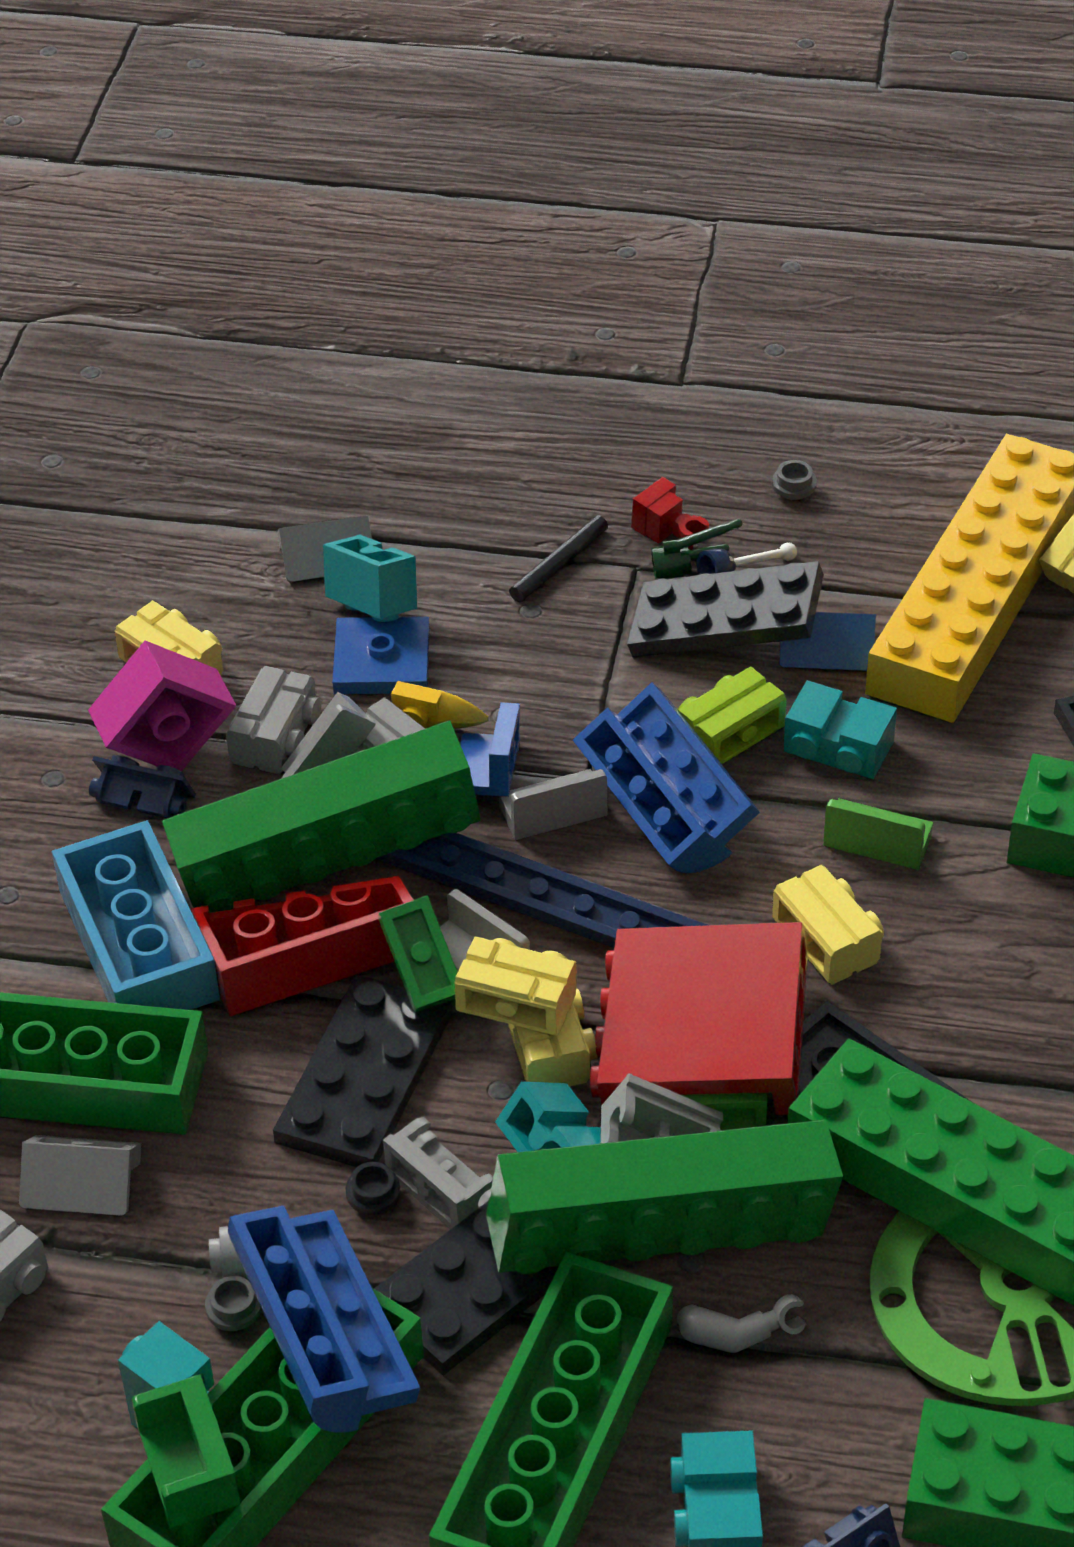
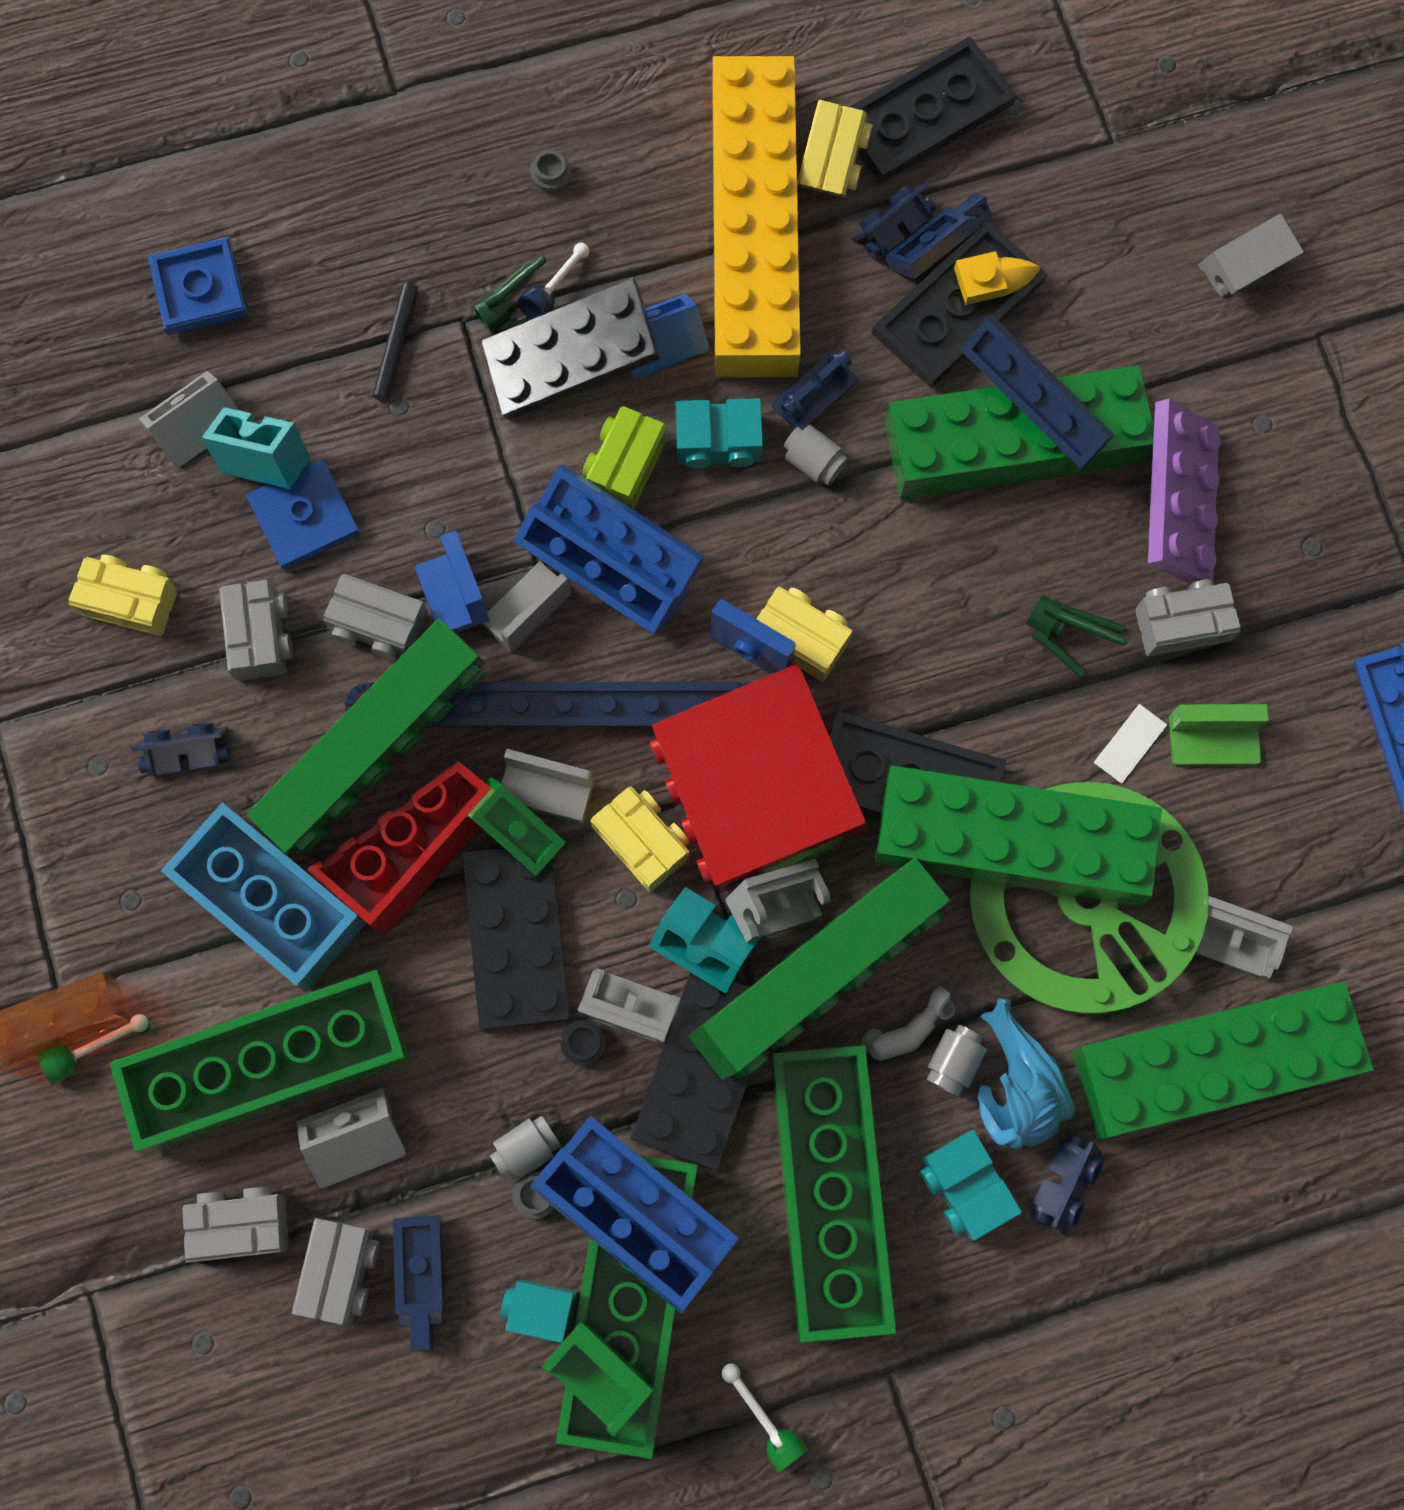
camera: 30 degrees left, 30 degrees up
(62, 1324) = (419, 1277): none -> dark blue hinge
(161, 707) = (164, 679): dark pink brick -> none
(333, 736) = (319, 645): light grey panel -> none
(399, 454) = (197, 286): none -> blue plate
(435, 706) = (379, 562): yellow plate -> none
(516, 985) = (610, 827): light yellow brick -> none
(659, 513) = (458, 258): red piece -> none
(762, 886) = (751, 638): none -> blue plate
(775, 1373) = (956, 1060): none -> light grey brick
(841, 1442) = (1033, 1089): none -> dark azure hair
(876, 833) = (794, 519): bright green panel -> none
(932, 784) = (815, 454): none -> light grey brick
(957, 738) = (816, 390): none -> dark blue hinge

